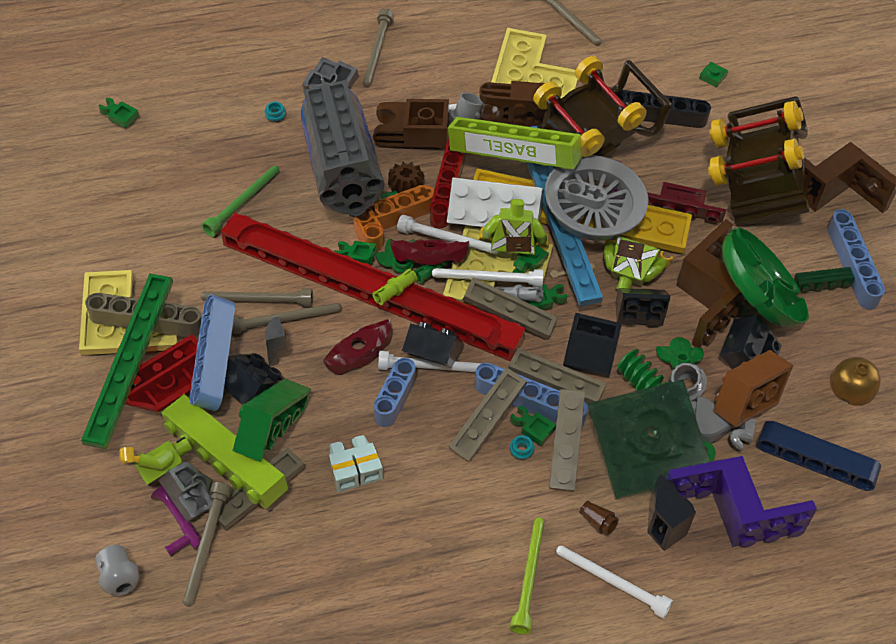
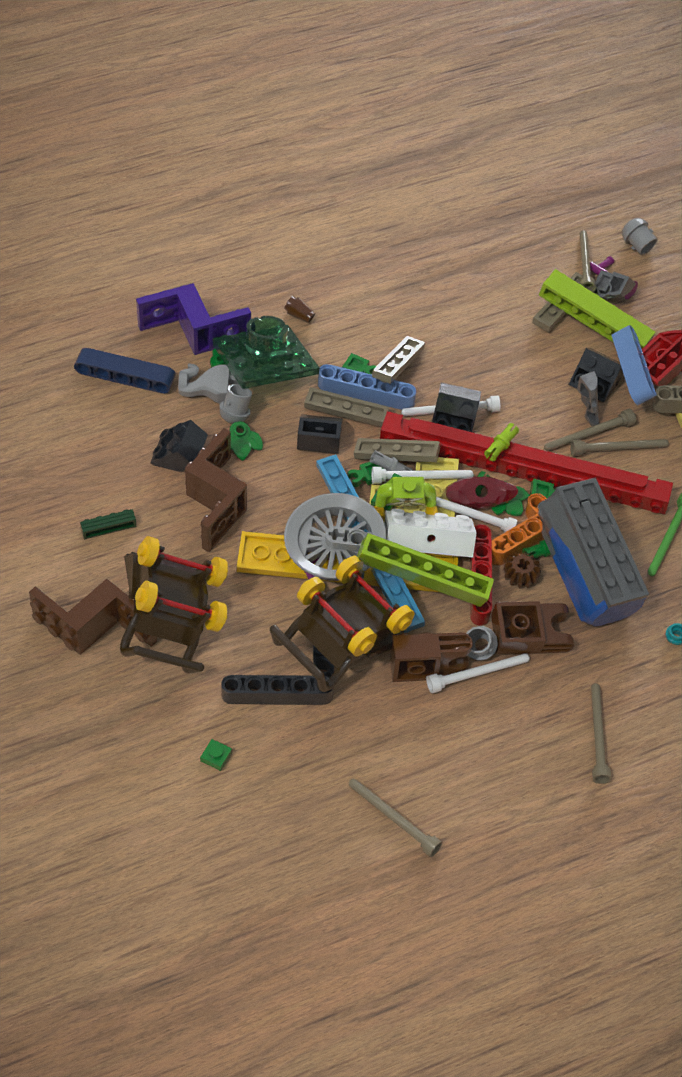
camera: 170 degrees right, 0 degrees up
(158, 460) = (643, 293): lime torso -> none
(269, 417) = (567, 329): green wedge -> none
(330, 72) = (634, 688): flat silver slope -> none
(345, 357) = (530, 401): dark red piece -> none
(354, 463) = (494, 322): light aqua hips -> none
(394, 401) = (480, 371): medium blue beam -> none
(521, 62) = (434, 719): light yellow plate -> none
(521, 622) = (347, 241): lime piece -> none
(522, 441) = (367, 352): teal plate -> none
(567, 440) = (332, 350): dark tan plate -> none
(633, 262) = (280, 505): torso -> none
(638, 372) = (272, 410): green piece -> none
(641, 306) = (280, 466): black slope -> none
(658, 604) = (248, 261): white piece -> none
(668, 514) = (246, 294): black slope -> none
(686, 200) = (254, 581): dark red bracket -> none
(752, 388) = (182, 390): dark orange brick -> none
(763, 279) = (170, 477): green piece -> none
(854, 254) = (79, 552): medium blue beam -> none
(855, 381) = (86, 434): pearl gold cylinder -> none

